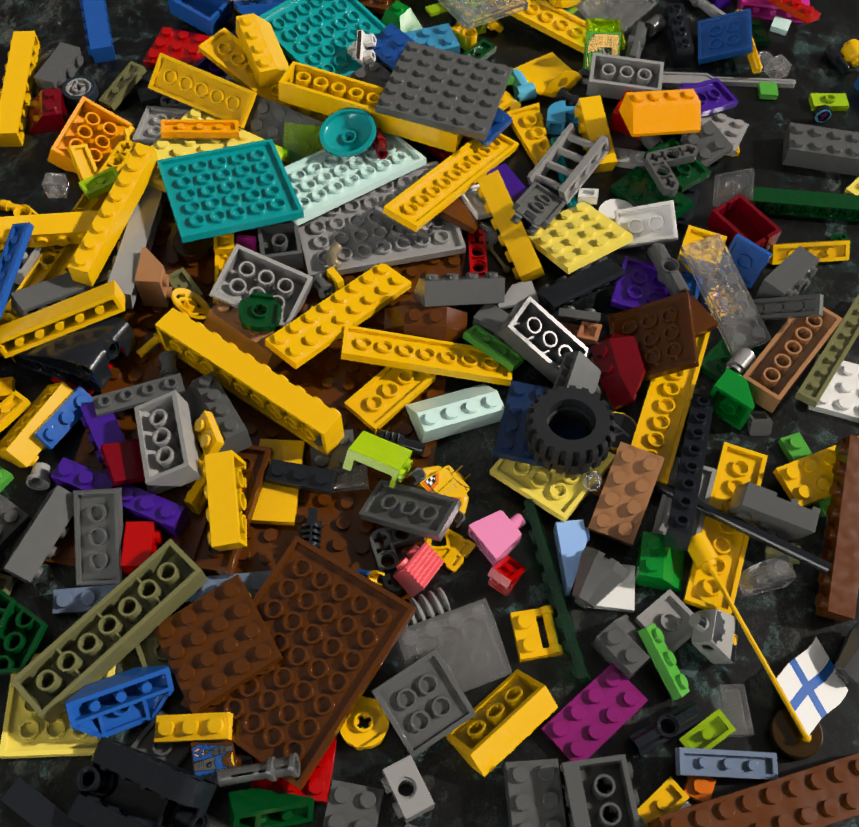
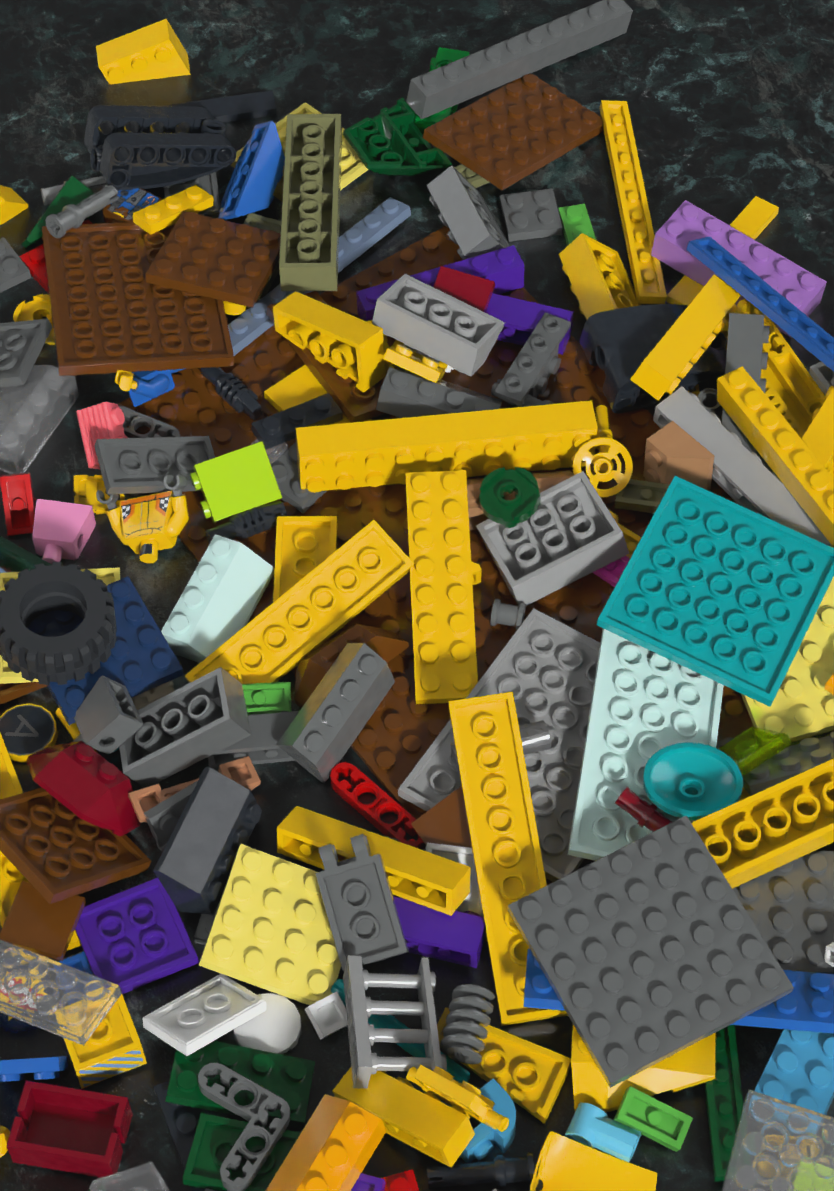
camera: 140 degrees right, 5 degrees down
(39, 477) = (542, 262): light grey piece -> none
(62, 418) = (578, 296): blue plate -> none
(98, 536) = (416, 249): dark grey tile -> none
(139, 544) = (369, 268): red brick -> none
(281, 244) = (586, 600): dark grey brick -> none
(331, 256) = (531, 640): dark tan arm -> none
(334, 278) = (498, 628): yellow tile -> none
(430, 606) = (63, 427): light grey piece -> none
(517, 293) = (275, 788): light grey slope -> none
(539, 138) = (467, 1023): none -> dark grey piece
(576, 105) = (460, 1094): none -> yellow plate
(667, 269) = (134, 968): dark grey piece -> none

